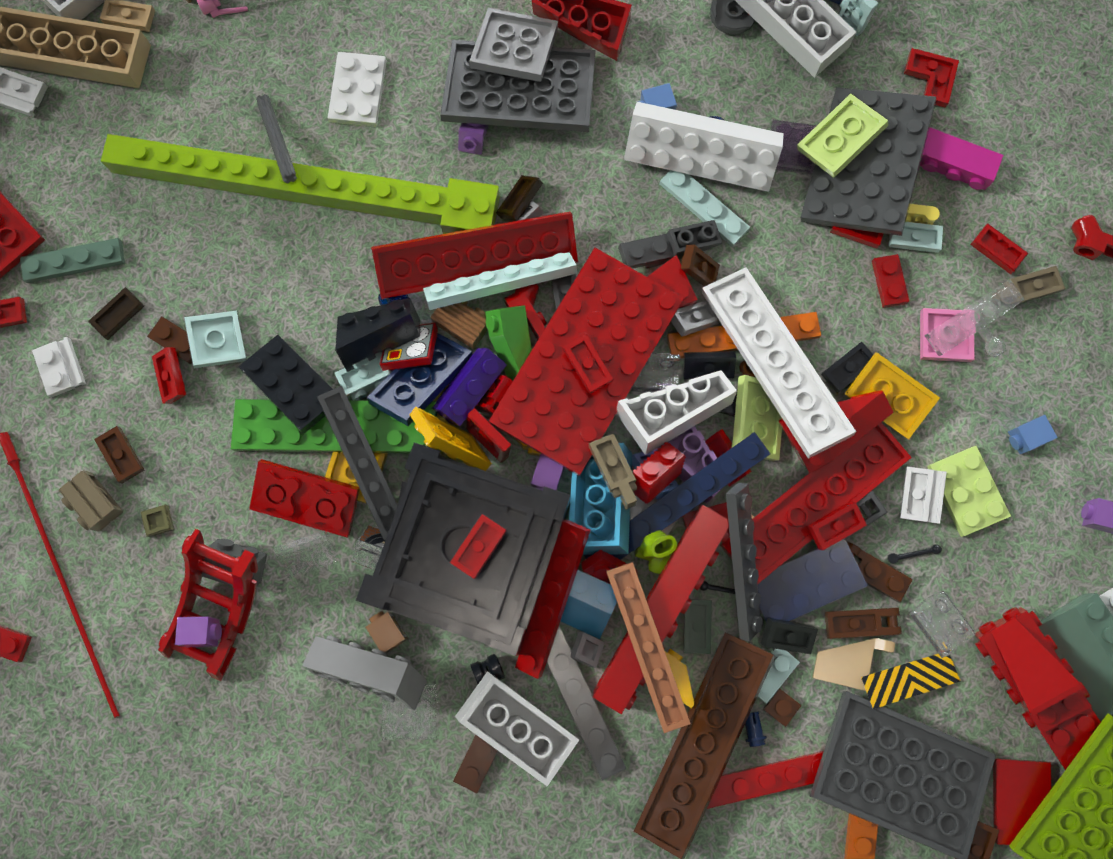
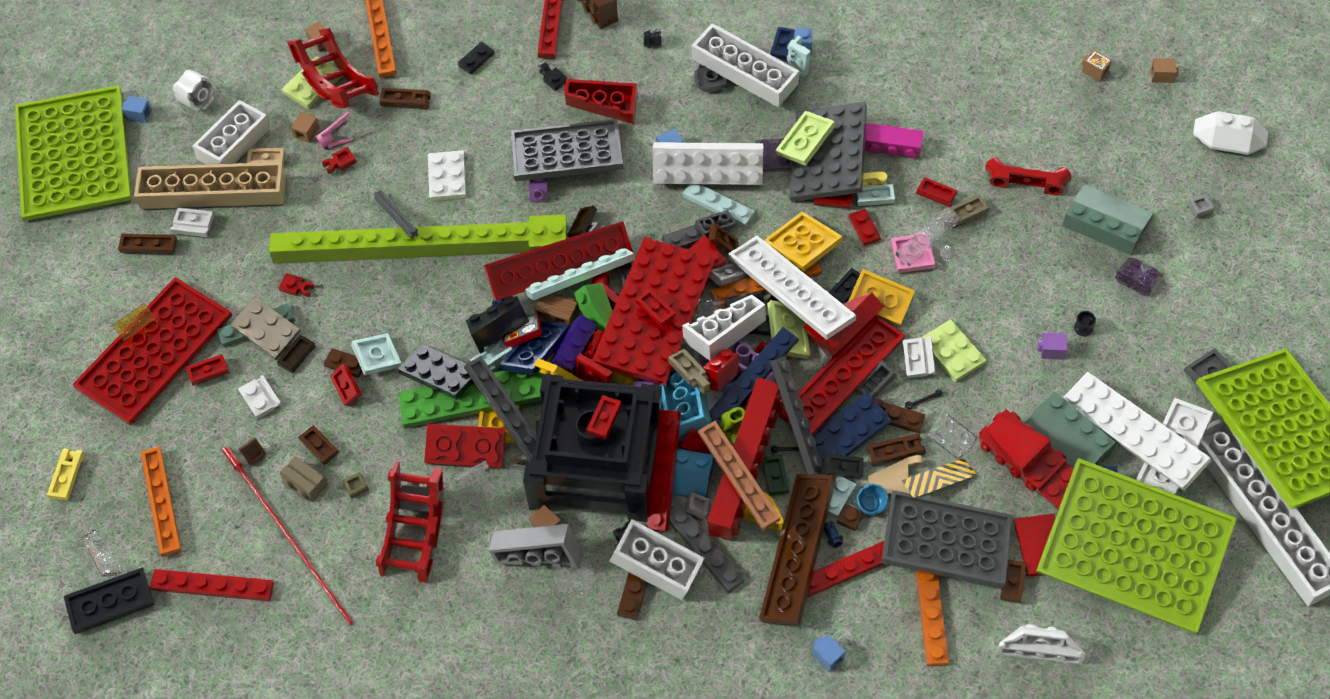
camera: 10 degrees left, 20 degrees down
(33, 446) = (252, 451): none -> reddish brown plate
(79, 270) = (265, 327): none -> dark tan plate
(132, 211) = (294, 284): none -> red plate
(198, 632) = (406, 542): medium lavender brick -> none
(225, 37) = (341, 159): none -> red plate
(514, 44) = (557, 124): light grey plate -> none
(806, 289) = (804, 241): none -> yellow plate
(816, 693) = (872, 499): none -> dark azure hair
(837, 525) = (859, 384): red plate -> none
(938, 72) = (866, 88): red plate -> none
(1031, 435) = (988, 304): medium blue brick -> none

